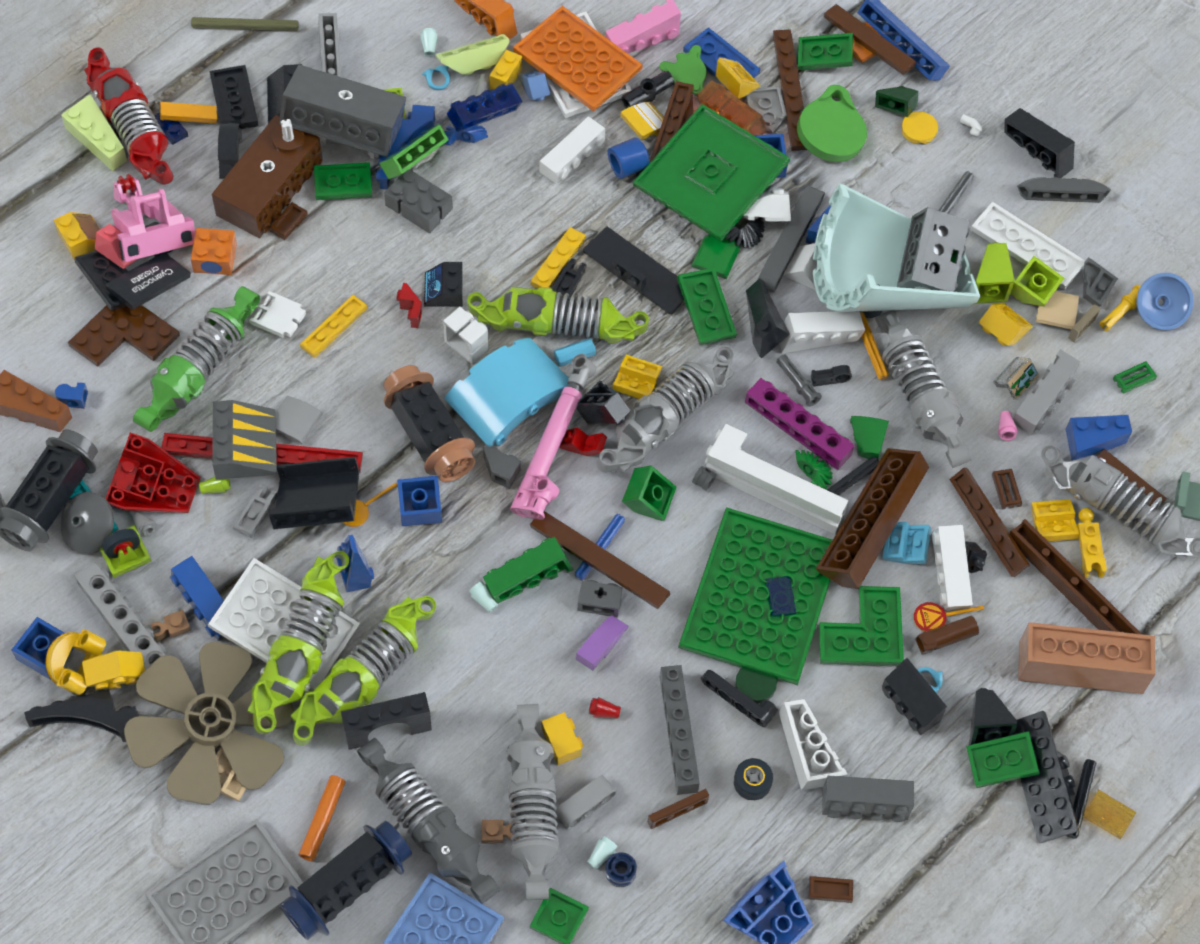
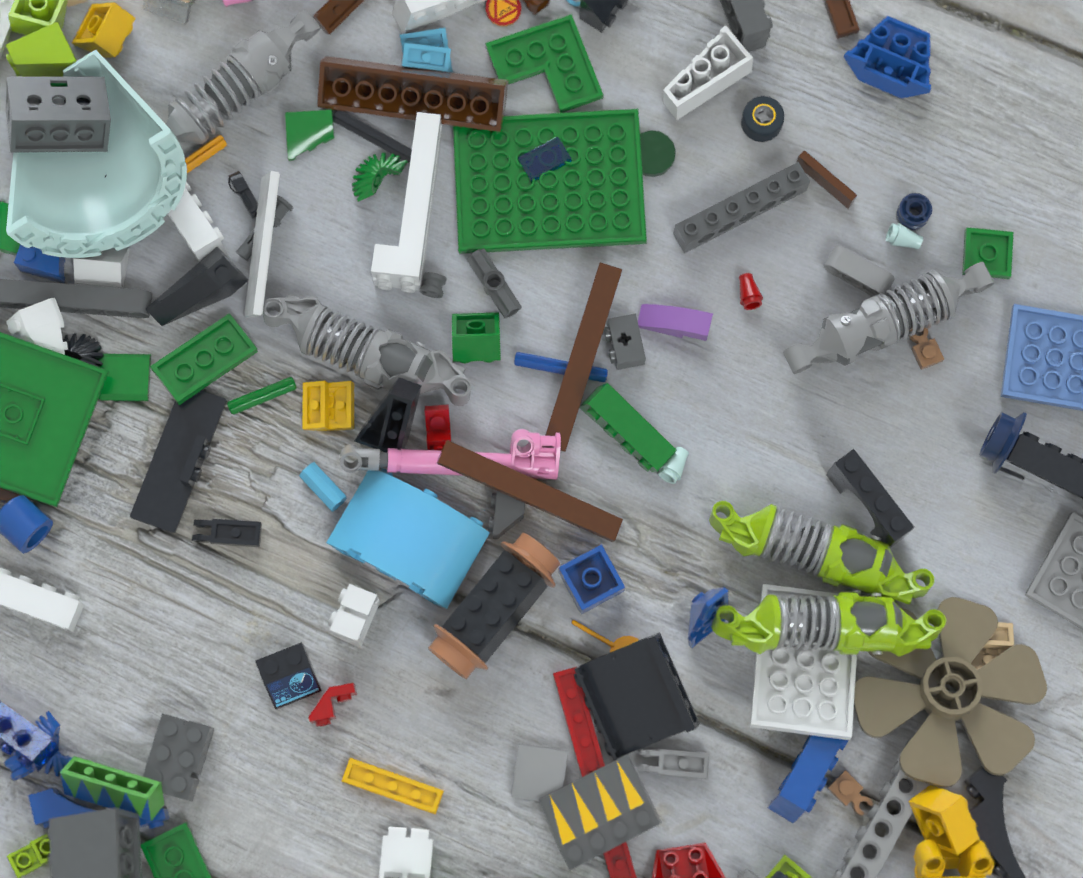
camera: 110 degrees left, 15 degrees up
(215, 486) = (665, 830): lime cone -> none
(322, 818) = (993, 528): orange piece -> none
(429, 821) = (957, 411): dark grey piece -> none
(505, 480) = (529, 491): none -> reddish brown tile
(548, 311) = (285, 529): piece -> none
(558, 259) = (197, 557): yellow plate -> none
(560, 733) = (801, 320): yellow brick -> none
(663, 334) = (261, 395): none -> green axle
(700, 519) = (487, 271): none -> dark grey piece
(760, 714) = (685, 133): black beam -> none
(780, 363) = (261, 245): none -> white tile
(802, 433) = (306, 263): magenta brick -> none
(900, 534) = (426, 57): none -> medium azure plate

